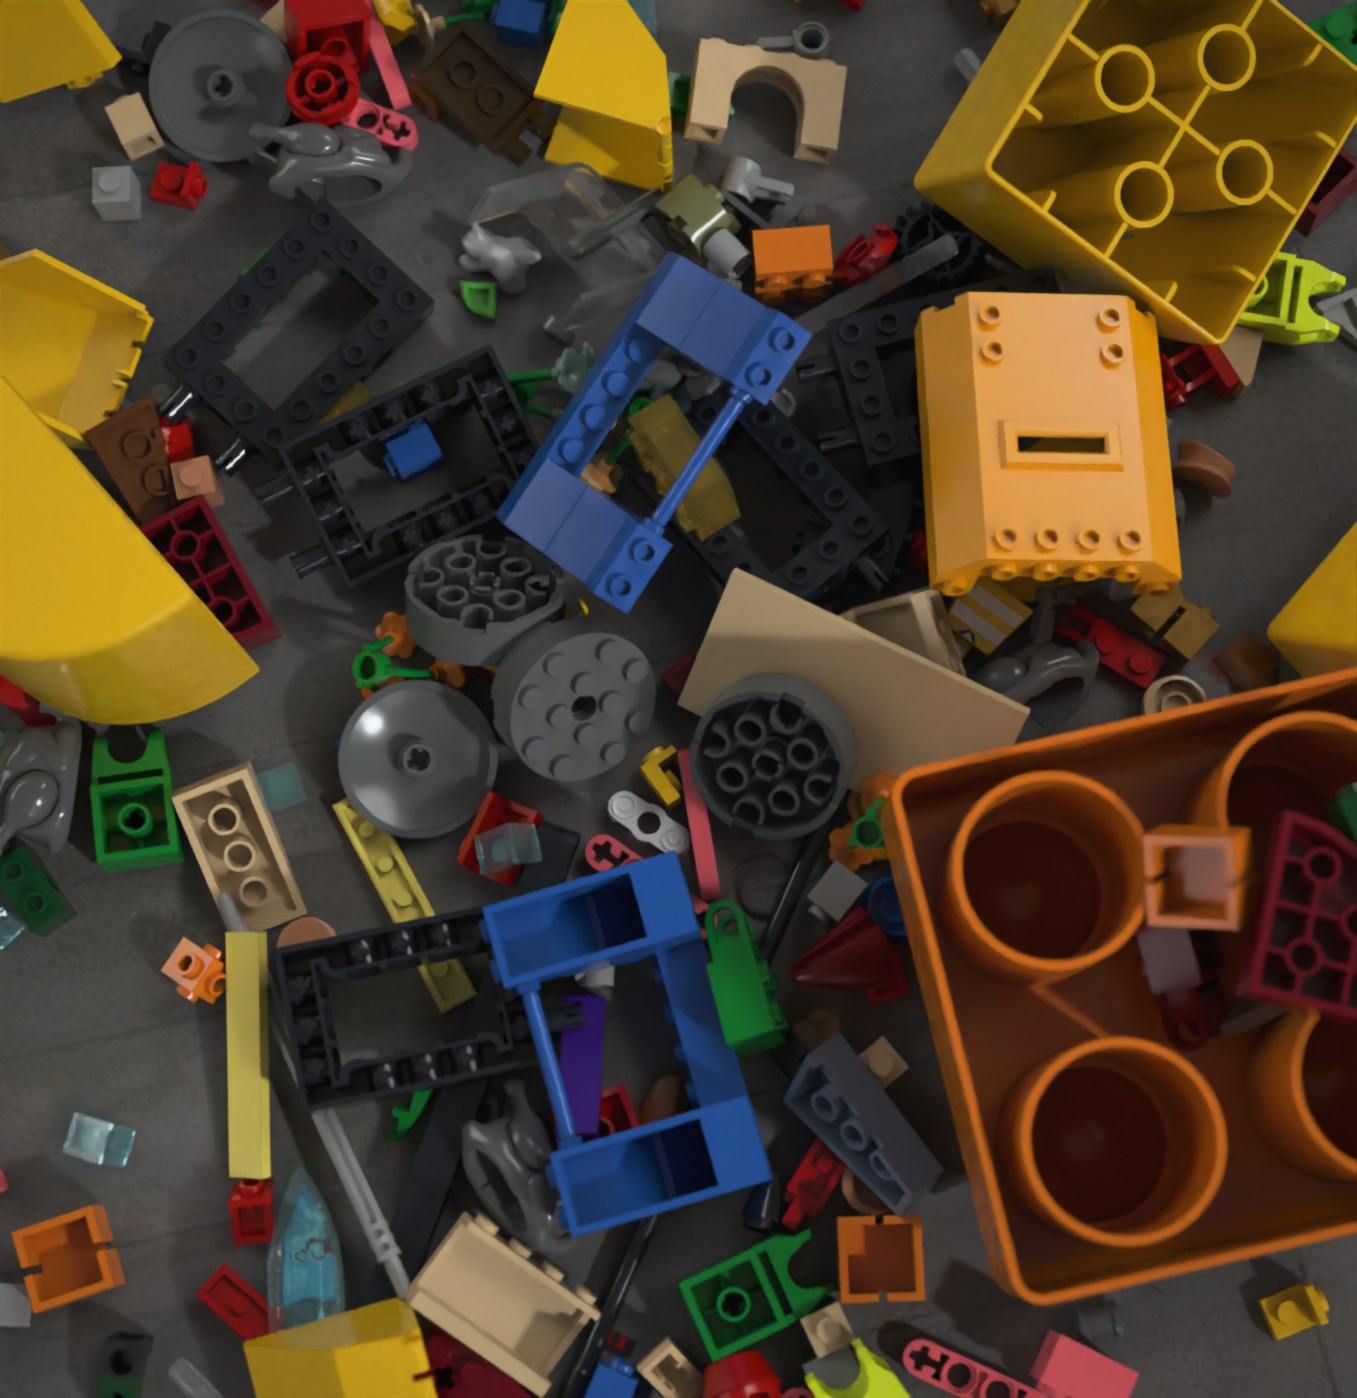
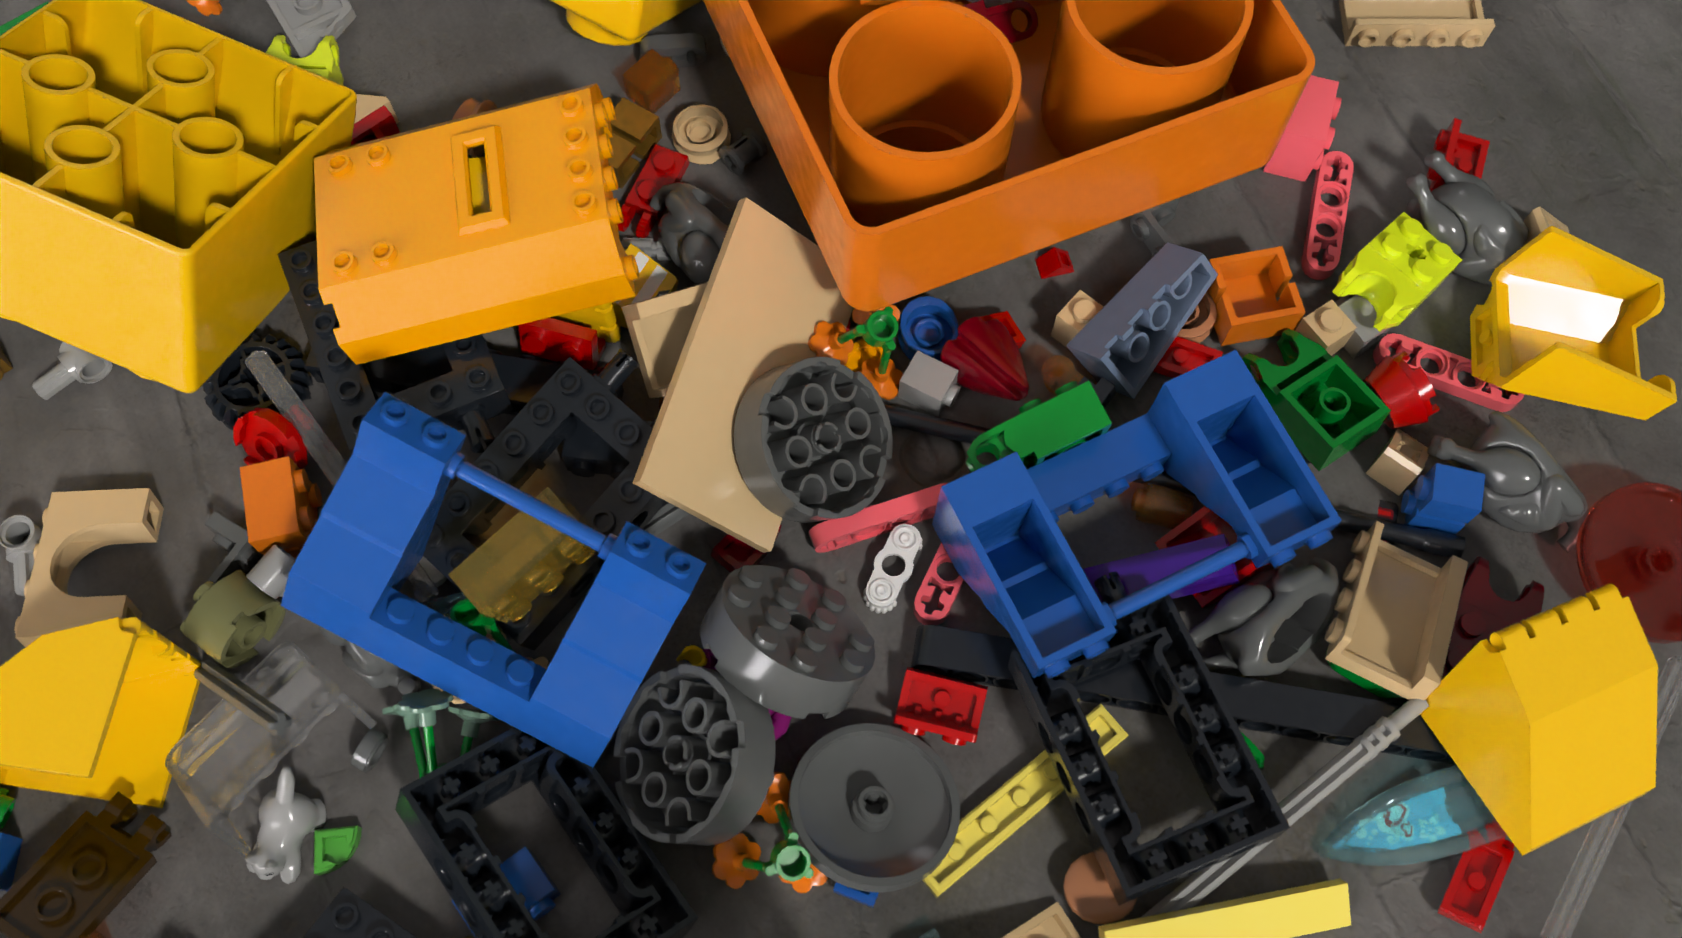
camera: 105 degrees left, 10 degrees down
(252, 1211) = (1379, 890): red bracket -> none
(507, 847) = (953, 689): clear light blue bracket -> none
(663, 784) = (851, 558): yellow bracket -> none
(745, 183) = (184, 578): light grey axle -> none

